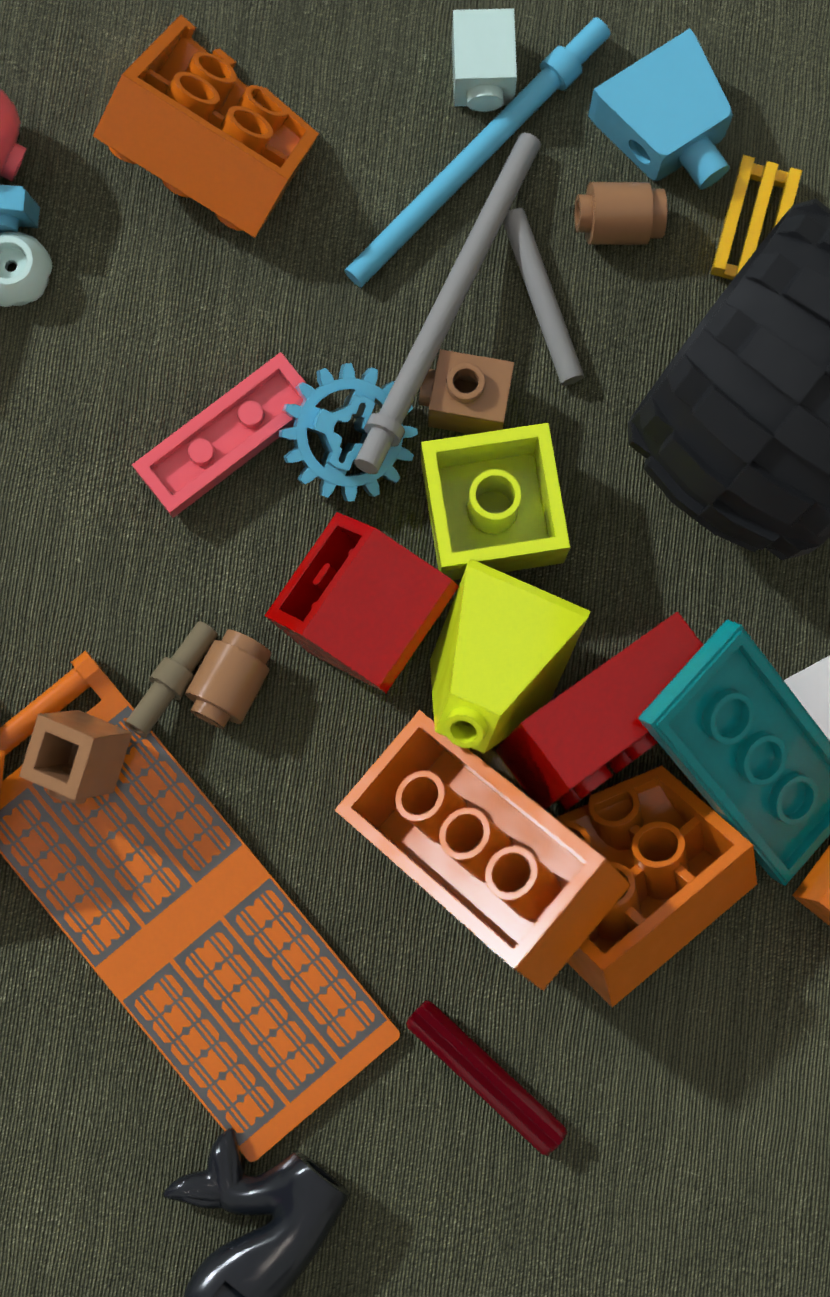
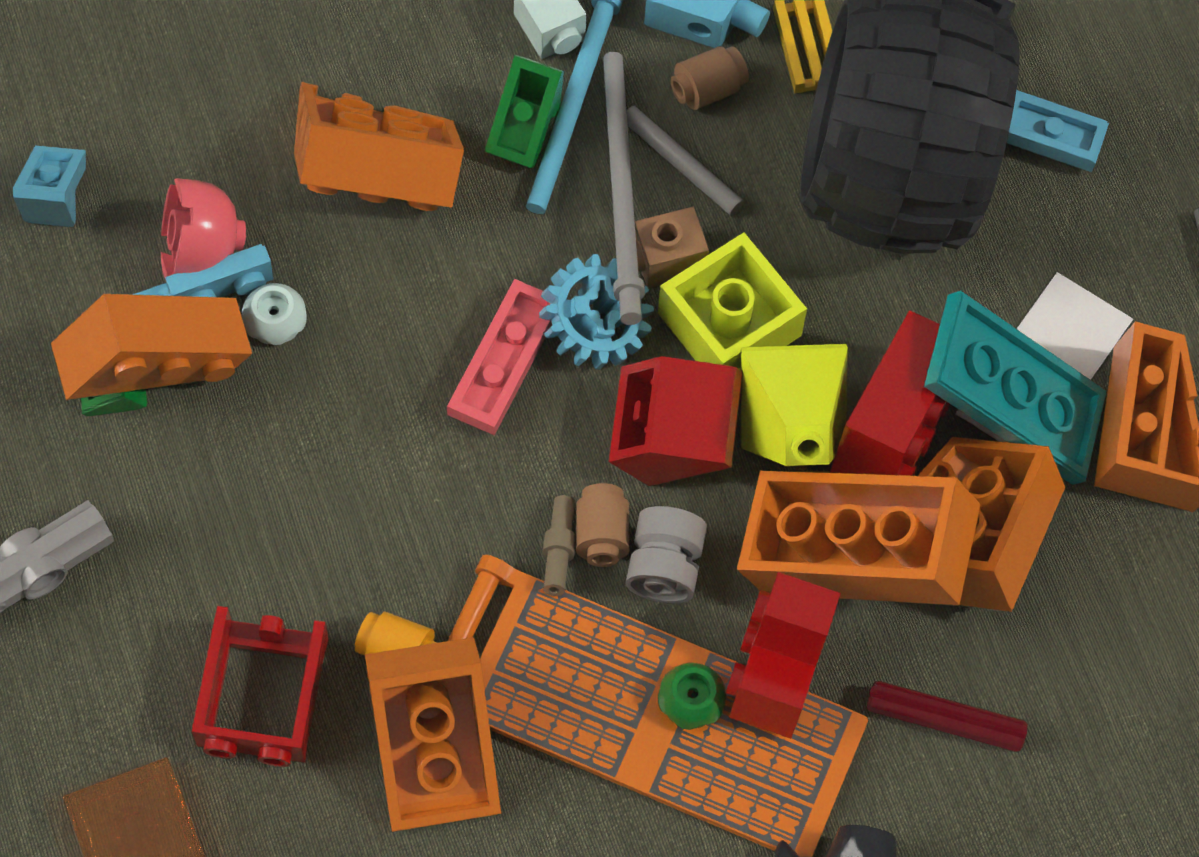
camera: 30 degrees left, 15 degrees down
(75, 755) = (526, 619): medium nougat brick -> none
(241, 916) = (692, 712): none -> green plate
(275, 748) = (667, 546): none -> light grey wheel
(342, 925) = (784, 648): none -> red brick
(395, 157) = (525, 110): none -> green slope

